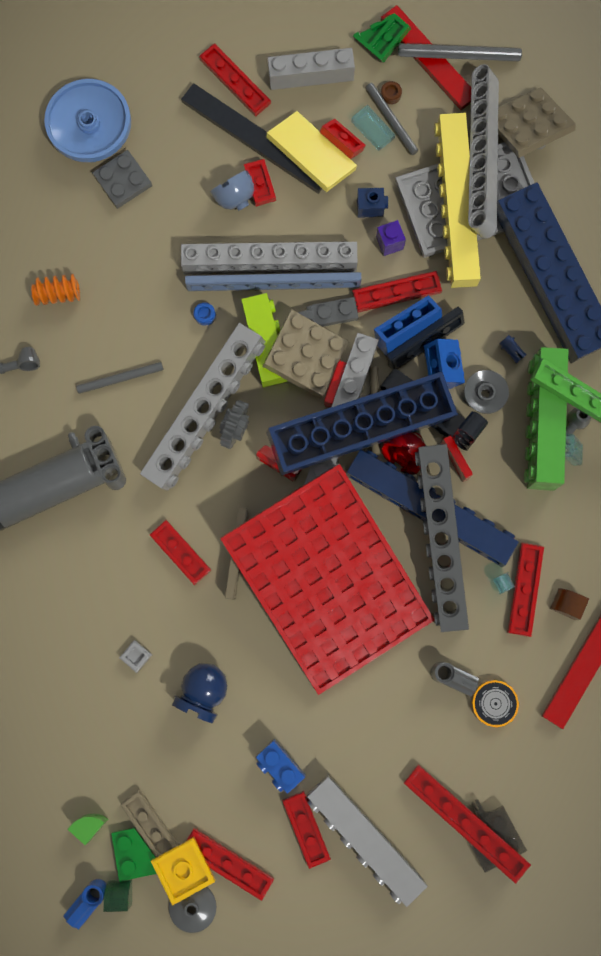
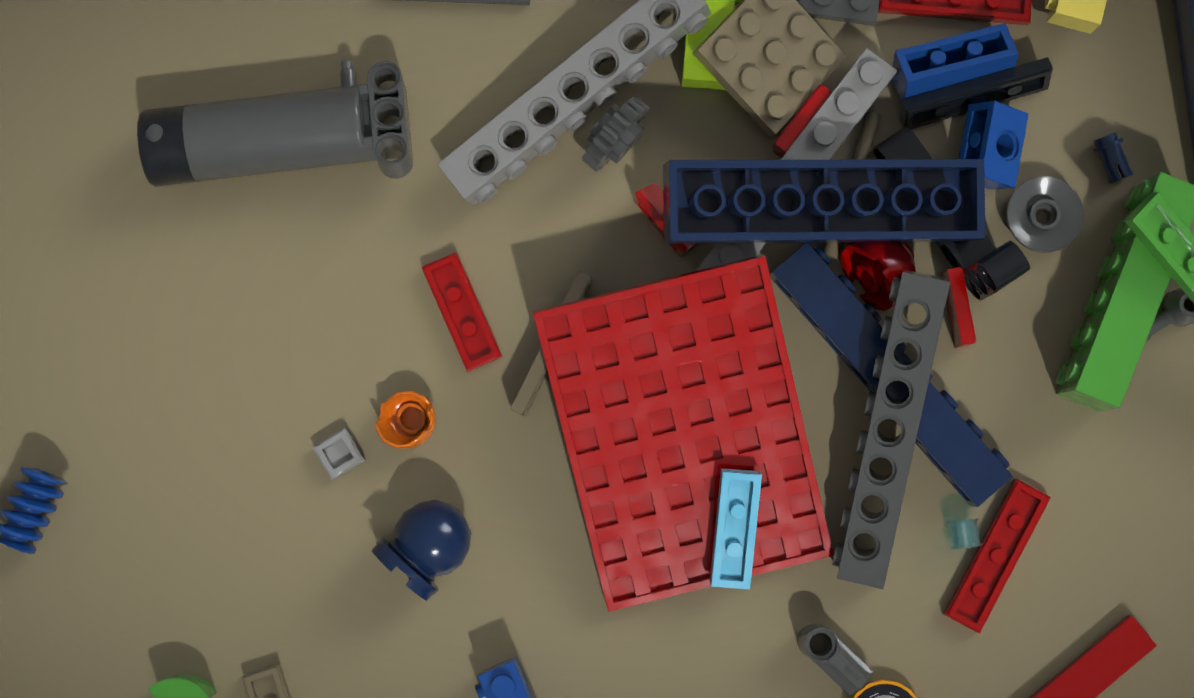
camera: 20 degrees right, 5 degrees up
(168, 623) = (406, 420): none -> orange hair
(374, 623) = (735, 528): none -> medium azure plate
(569, 604) = (1059, 602): reddish brown brick -> none
(575, 449) = (1155, 366): clear light blue tile -> none

